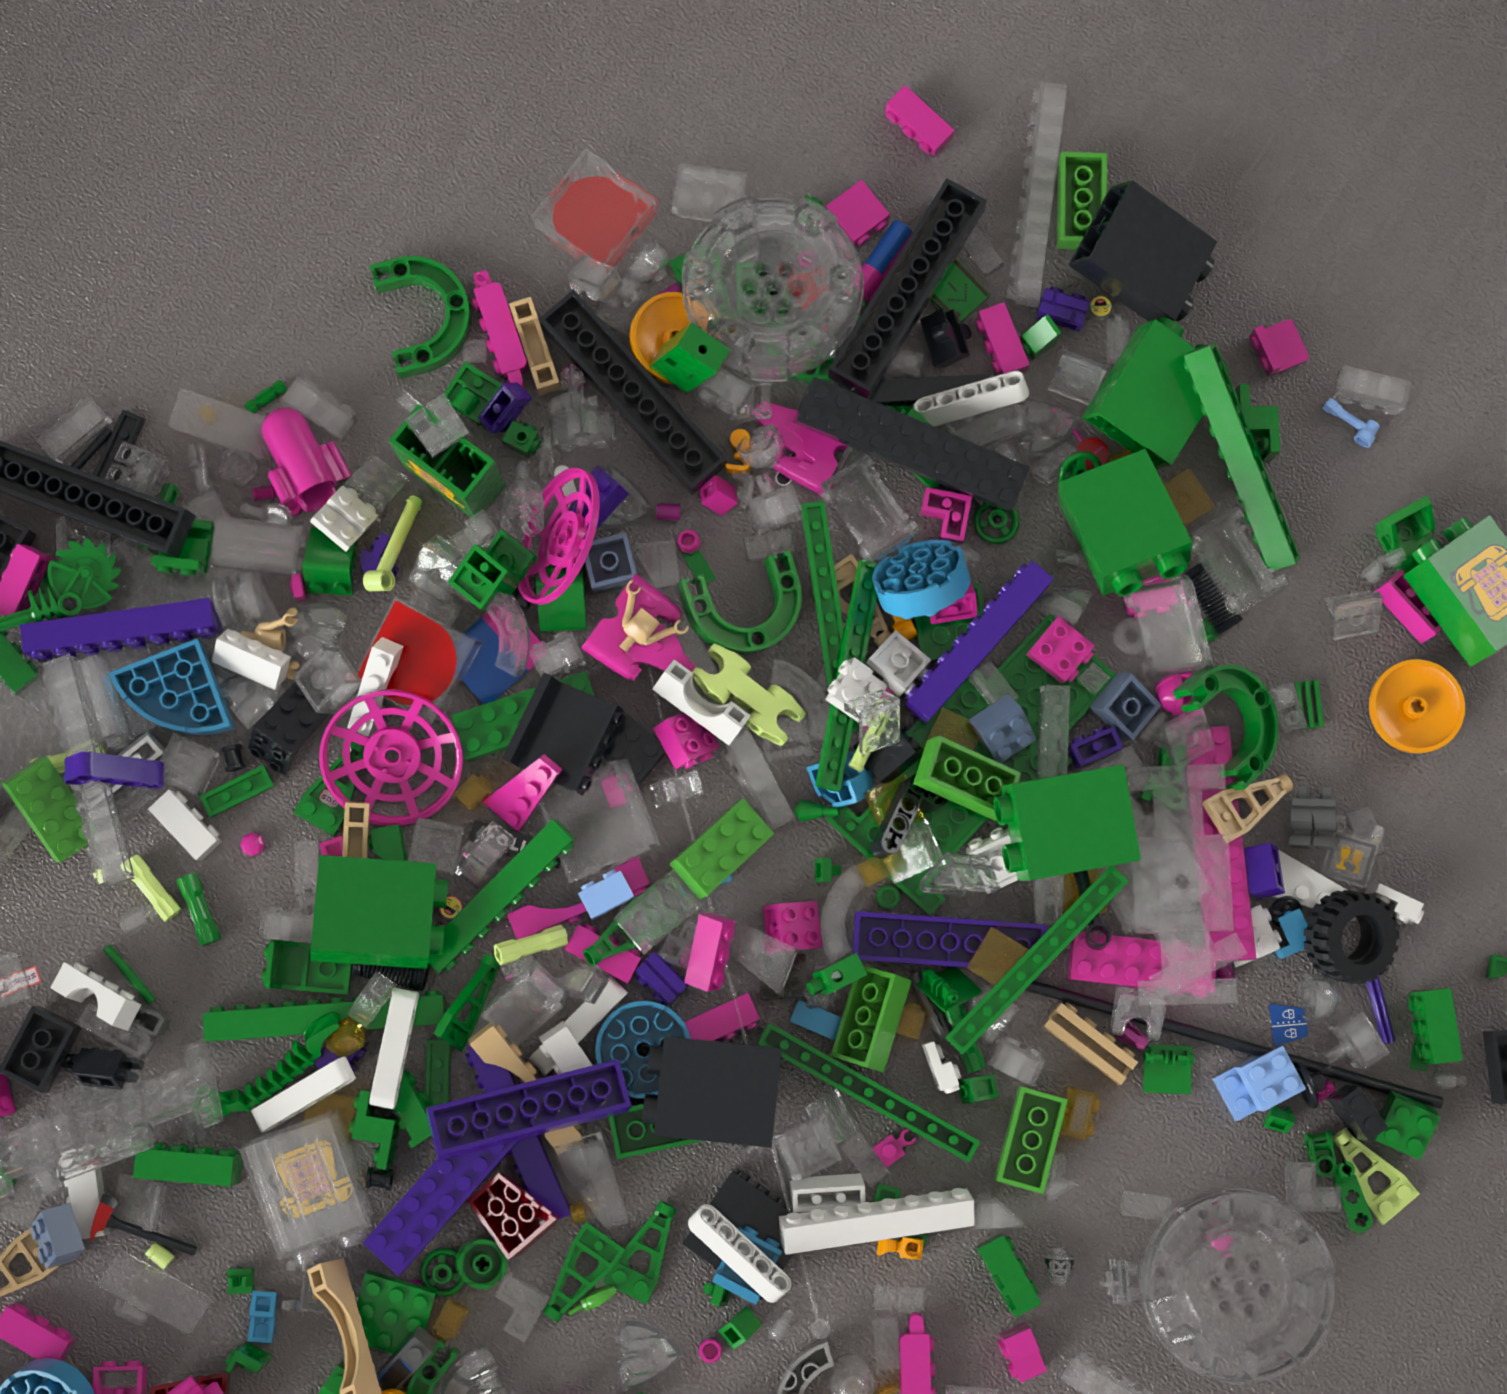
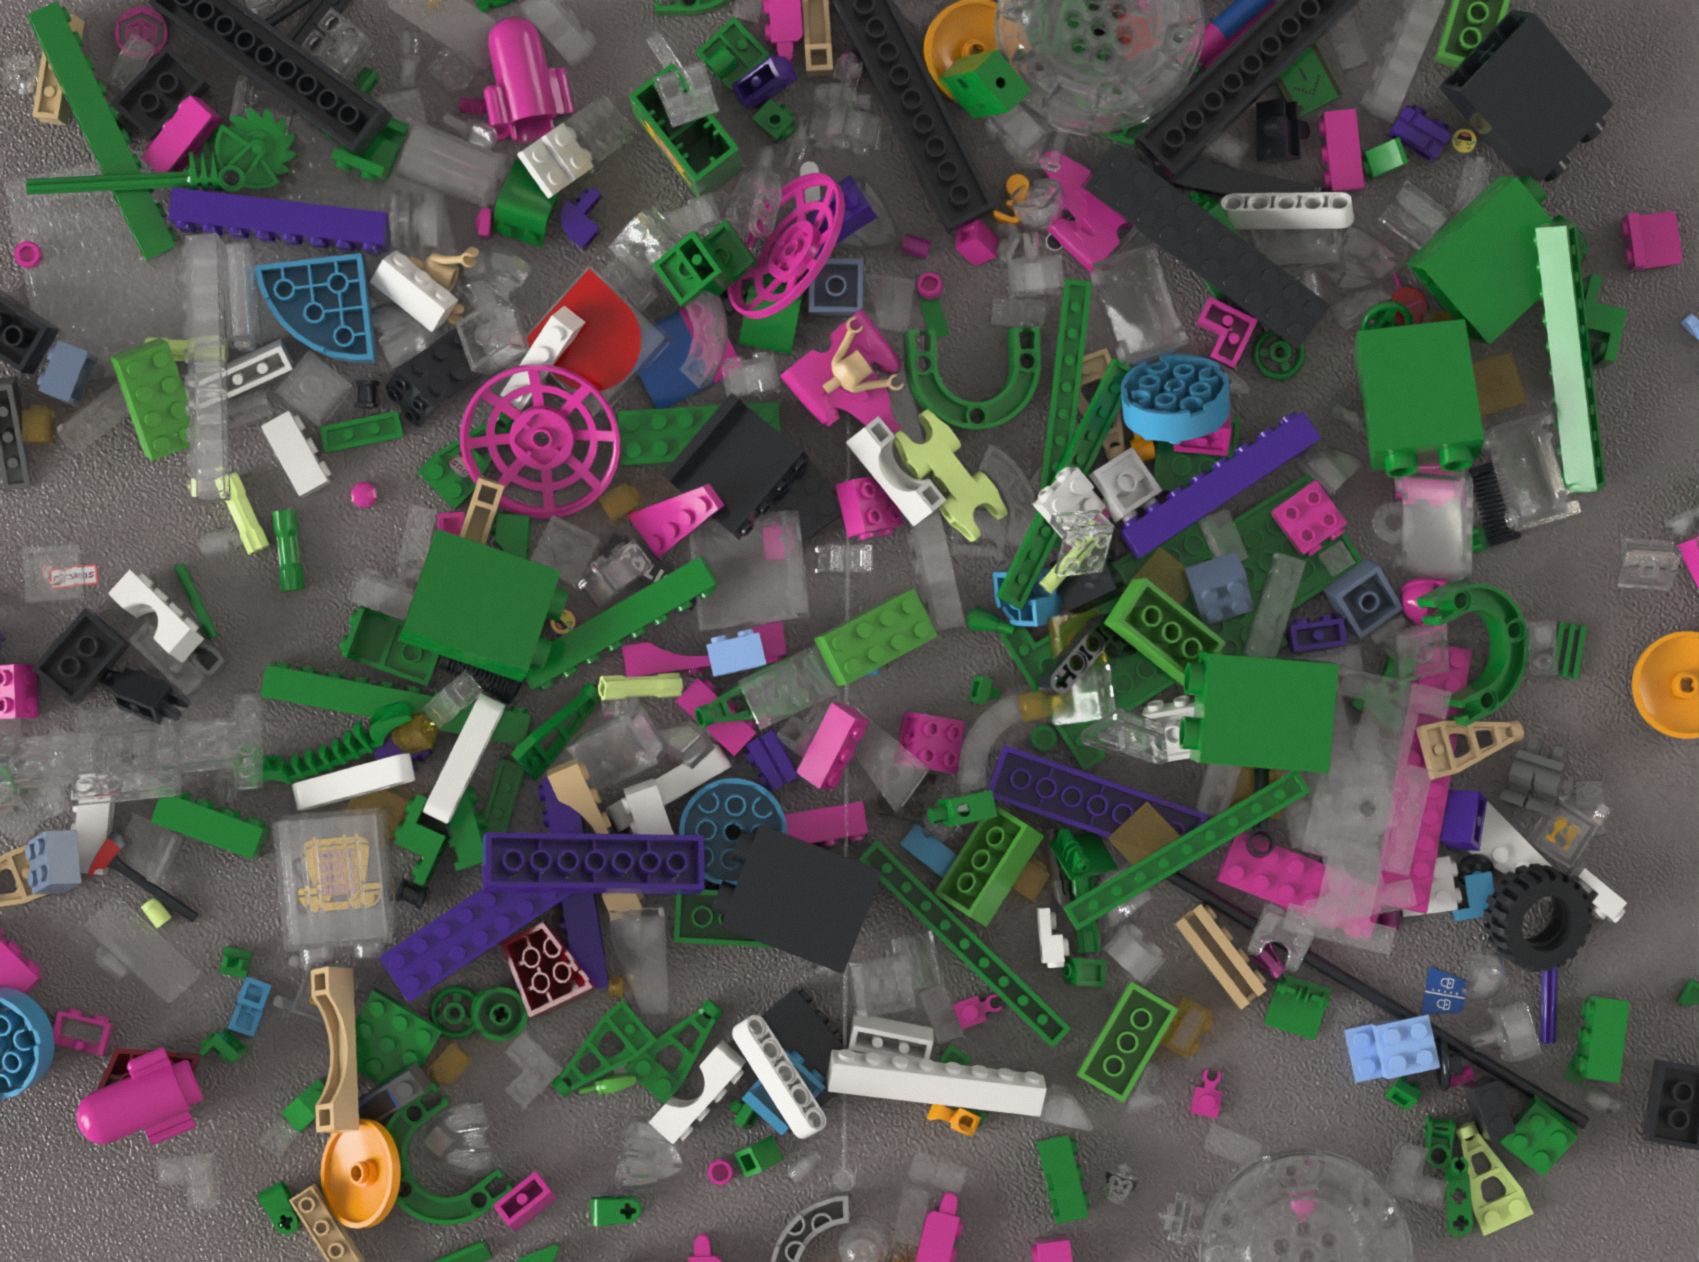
camera: 20 degrees right, 5 degrees up
(113, 769) = (235, 375): dark purple beam -> none
(382, 578) = (581, 239): yellowish green piece -> none
(660, 1309) = (678, 1114): none -> white arch
(1112, 1171) = (1207, 1099): none -> dark pink plate

